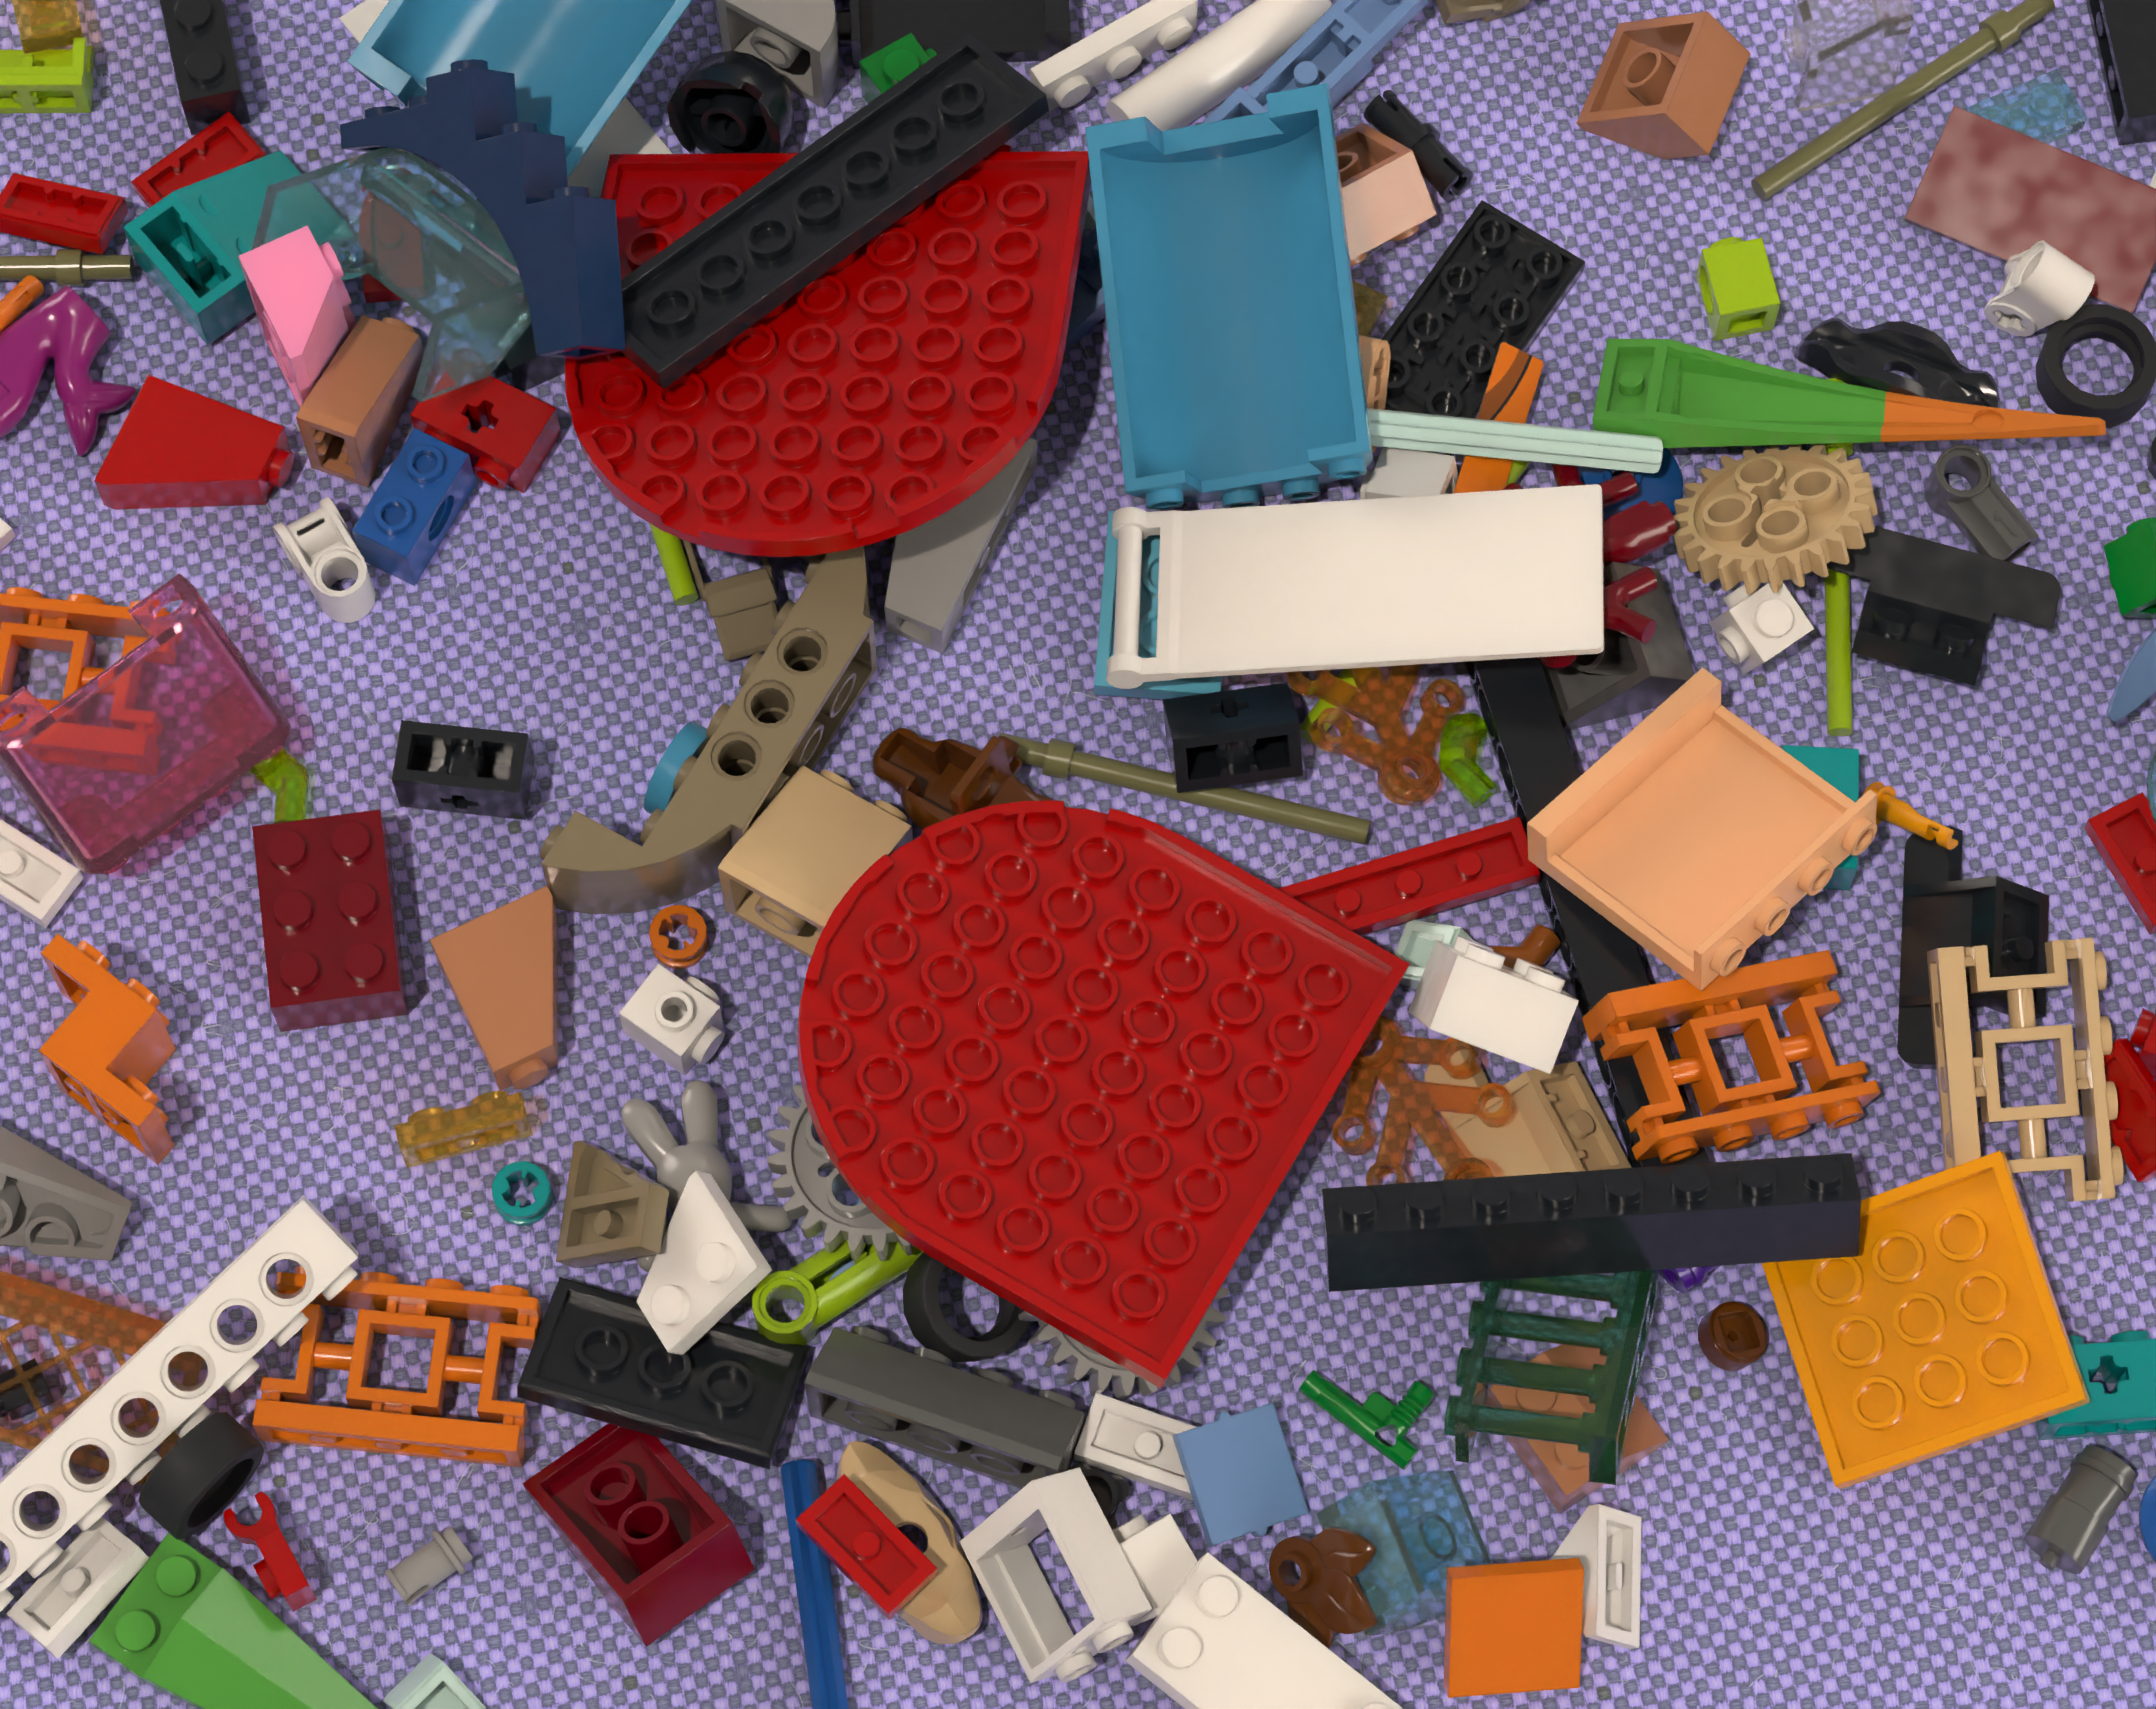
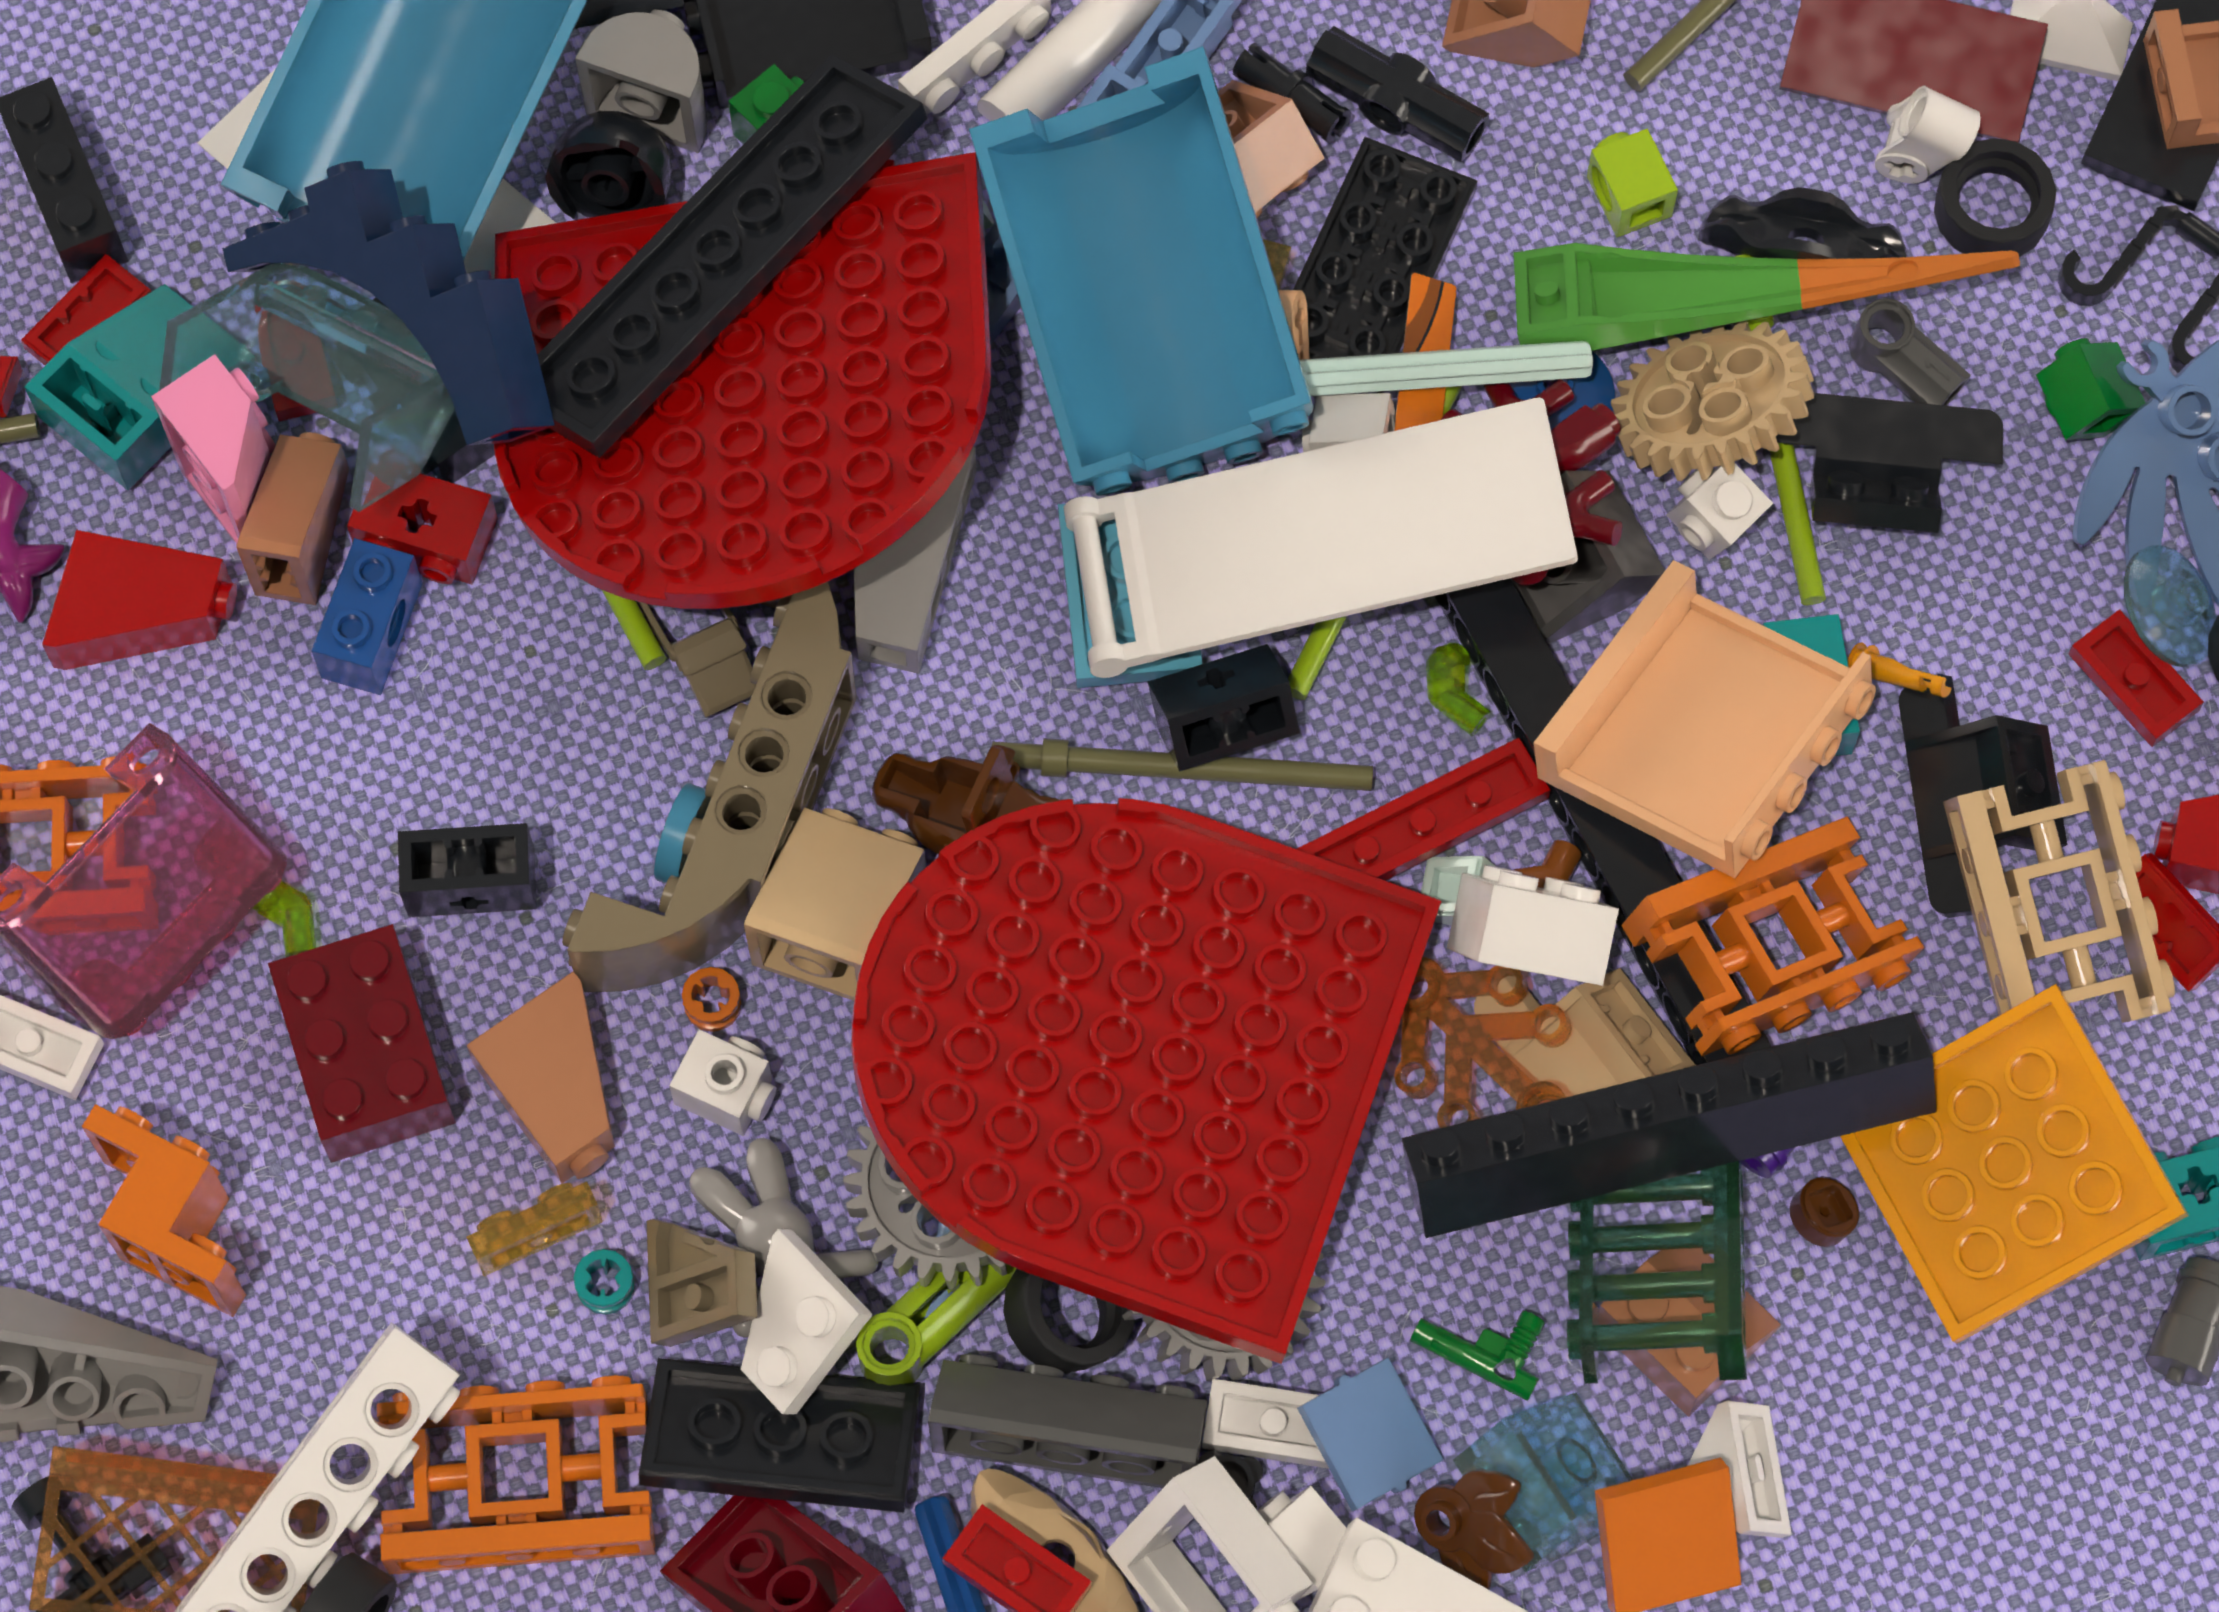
camera: 10 degrees left, 0 degrees up
(323, 554) = (285, 677): white piece -> none
(1381, 706) = (1362, 652): clear orange plant -> none
(1522, 162) = (1397, 93): none -> black piece

